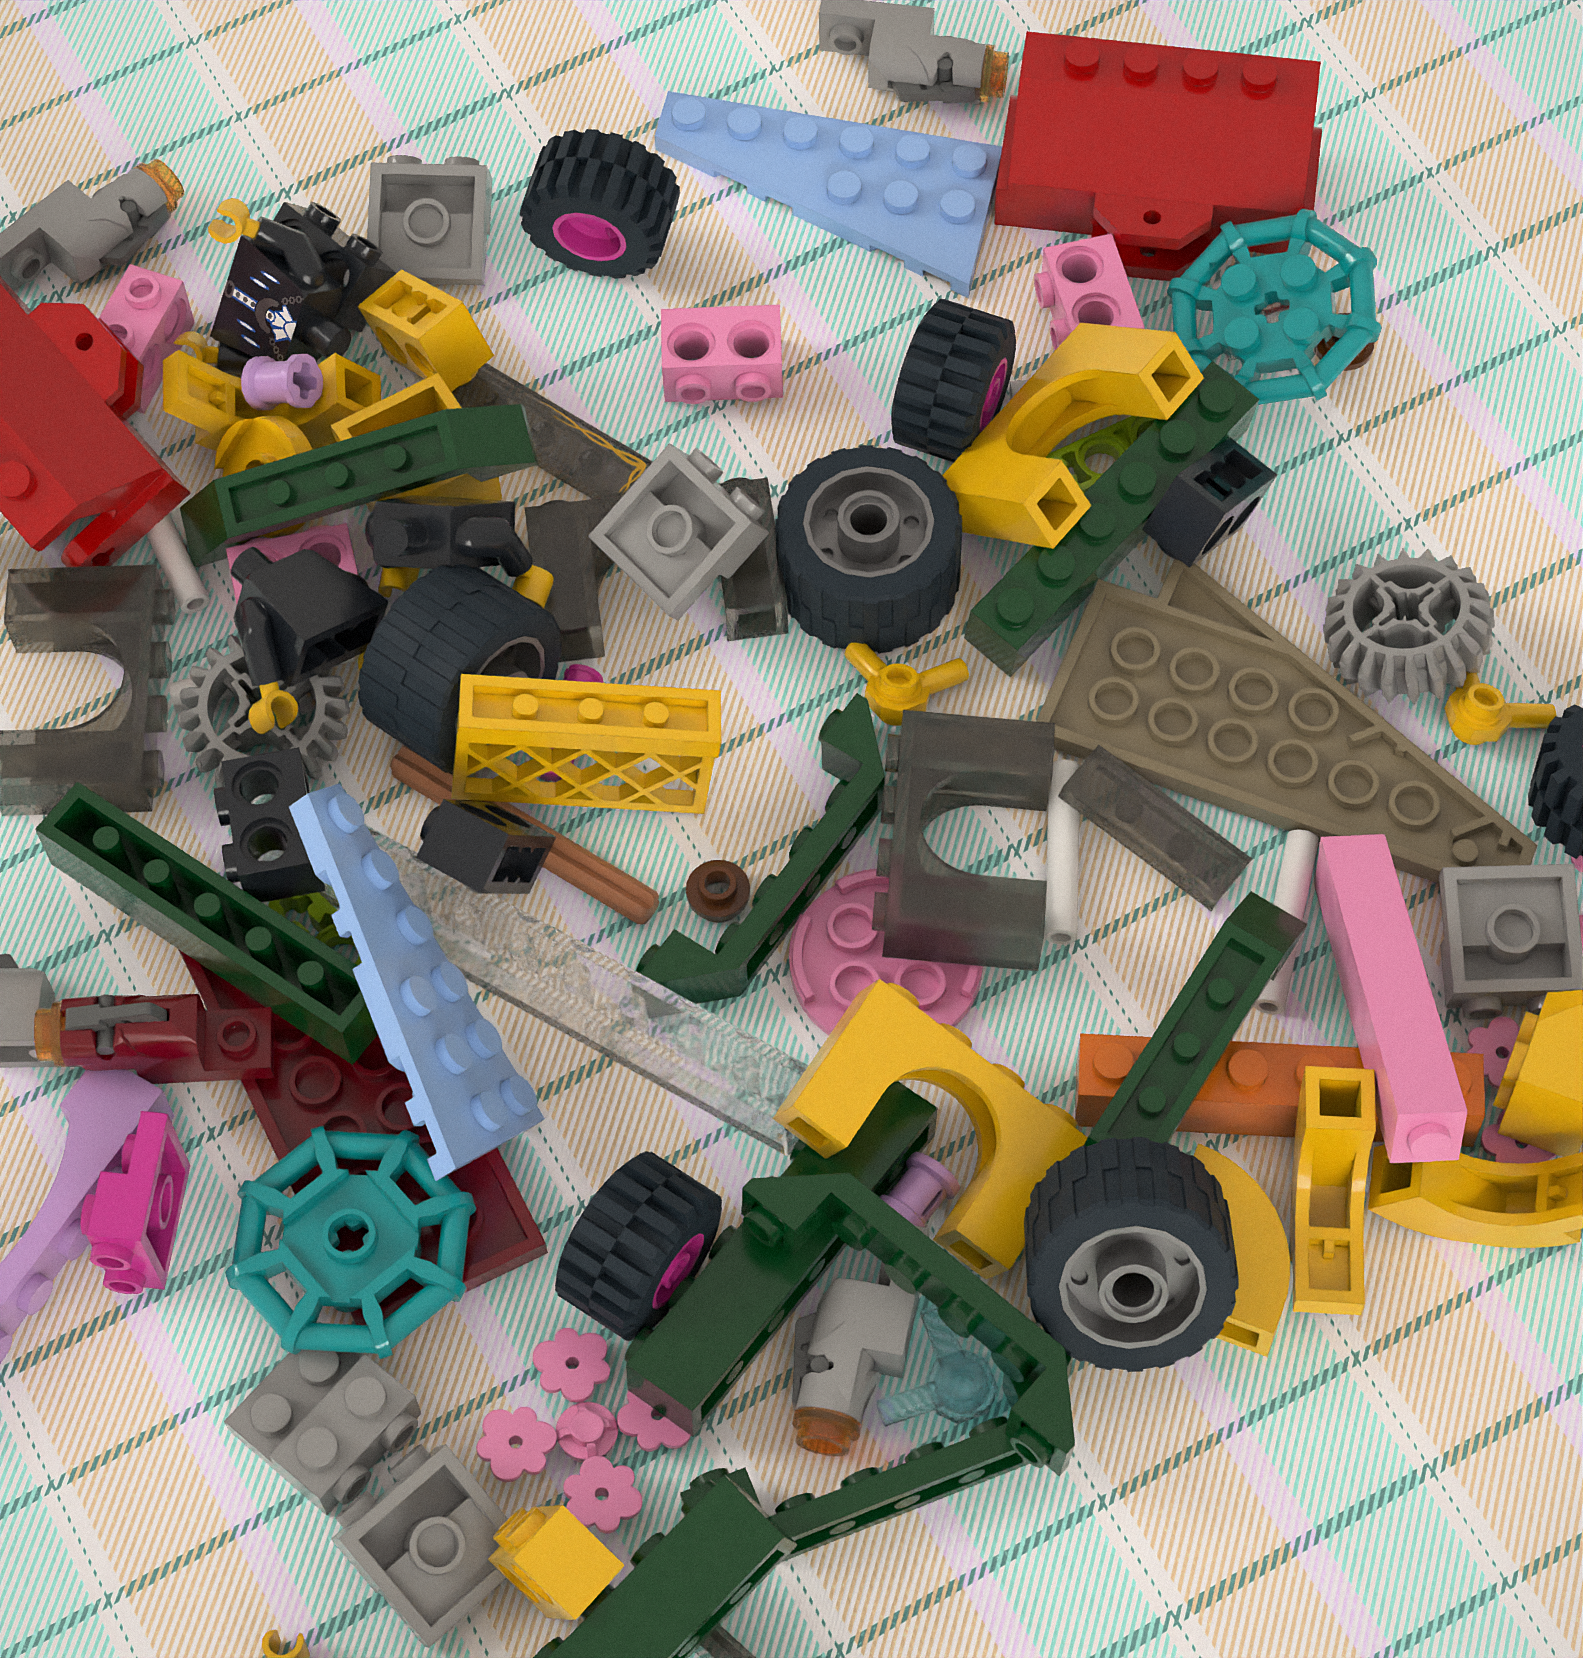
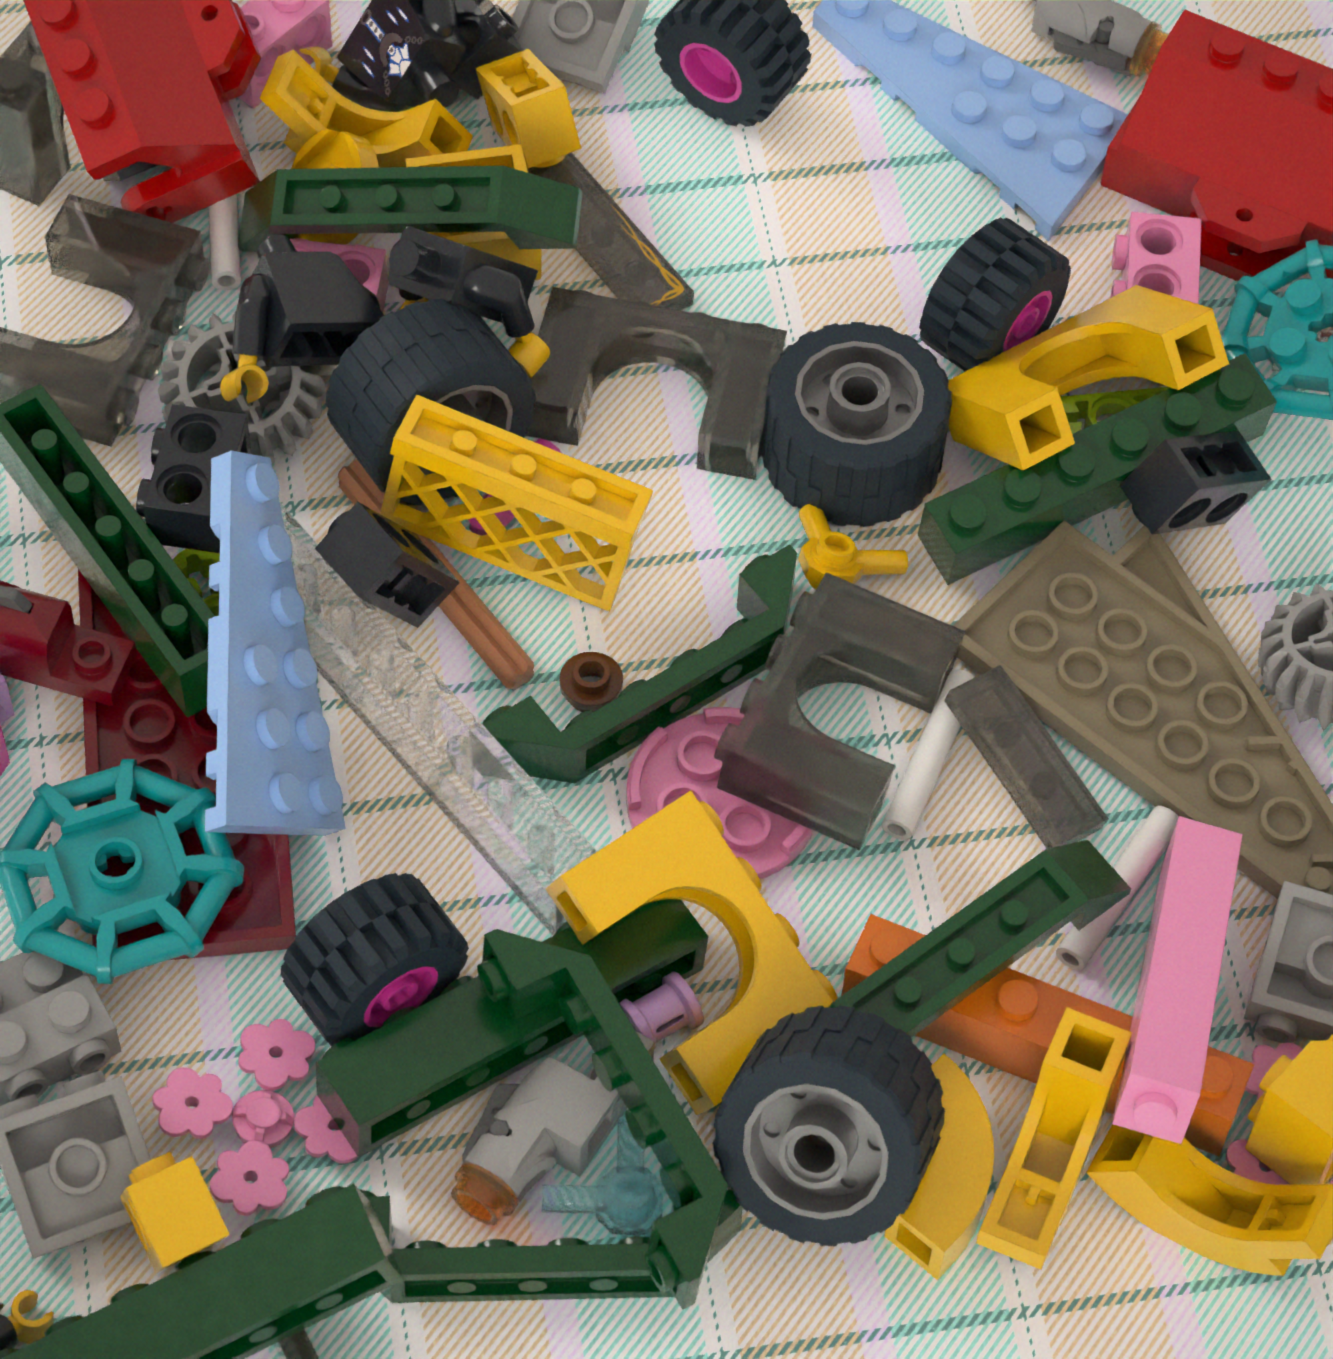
camera: 15 degrees right, 5 degrees down
(274, 382) = (368, 107): lavender bush -> none
(680, 529) = (683, 345): light grey plate -> none
(720, 343) = (794, 214): bright pink brick -> none

